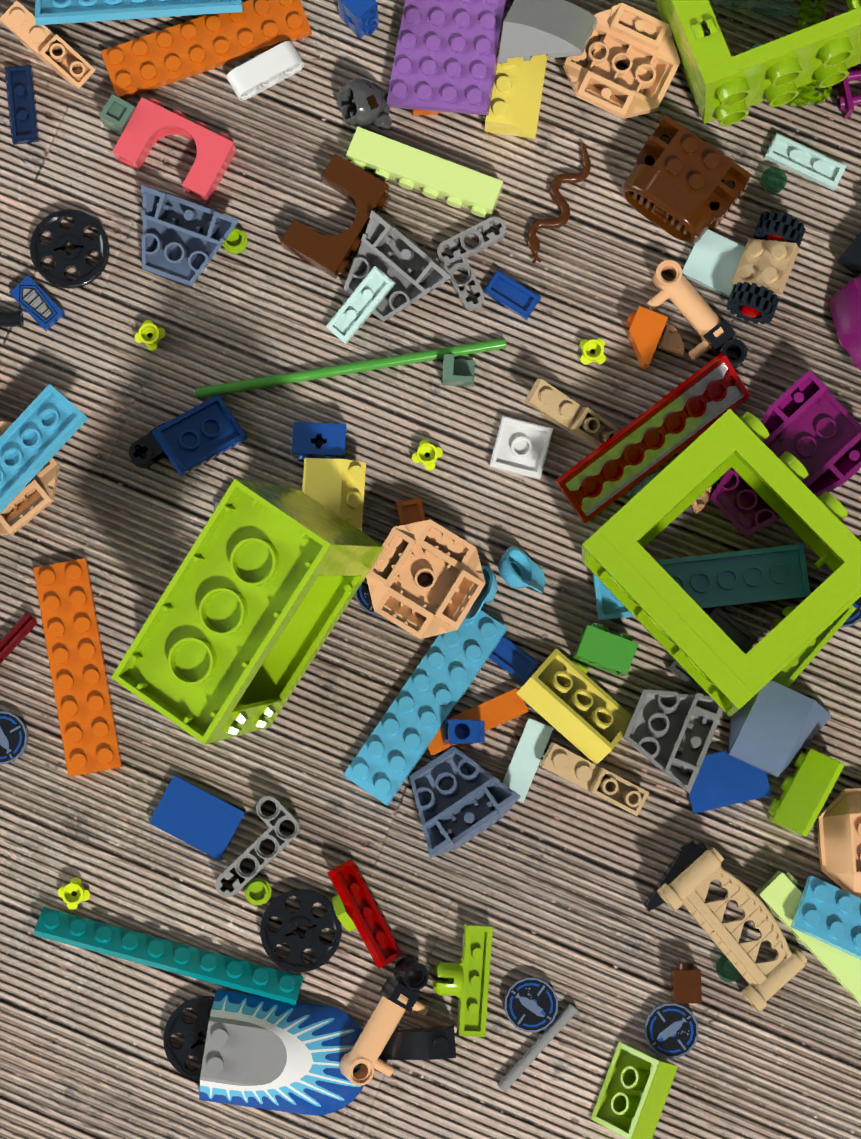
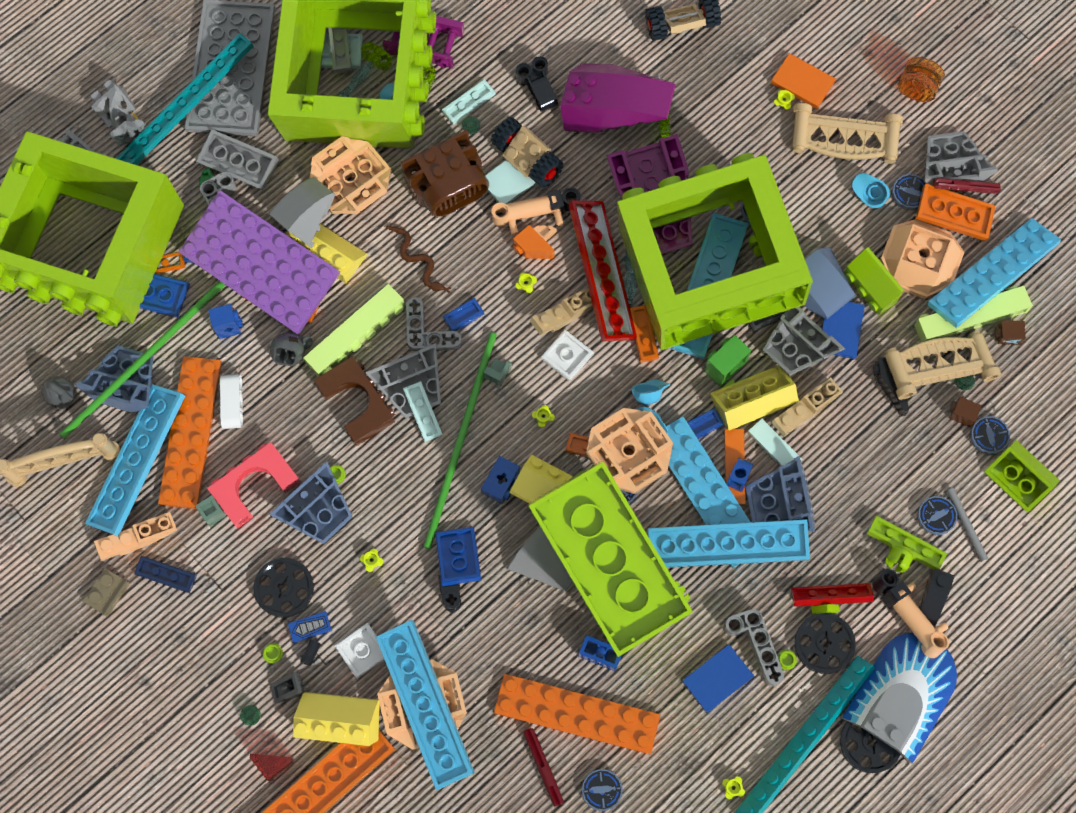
camera: 65 degrees left, 10 degrees down
(34, 372) = (360, 651): none -> white tile
(366, 758) = (732, 543): none -> medium azure plate
(572, 542) = (645, 338): none -> orange tile
(825, 1001) = (1010, 332): none -> reddish brown brick

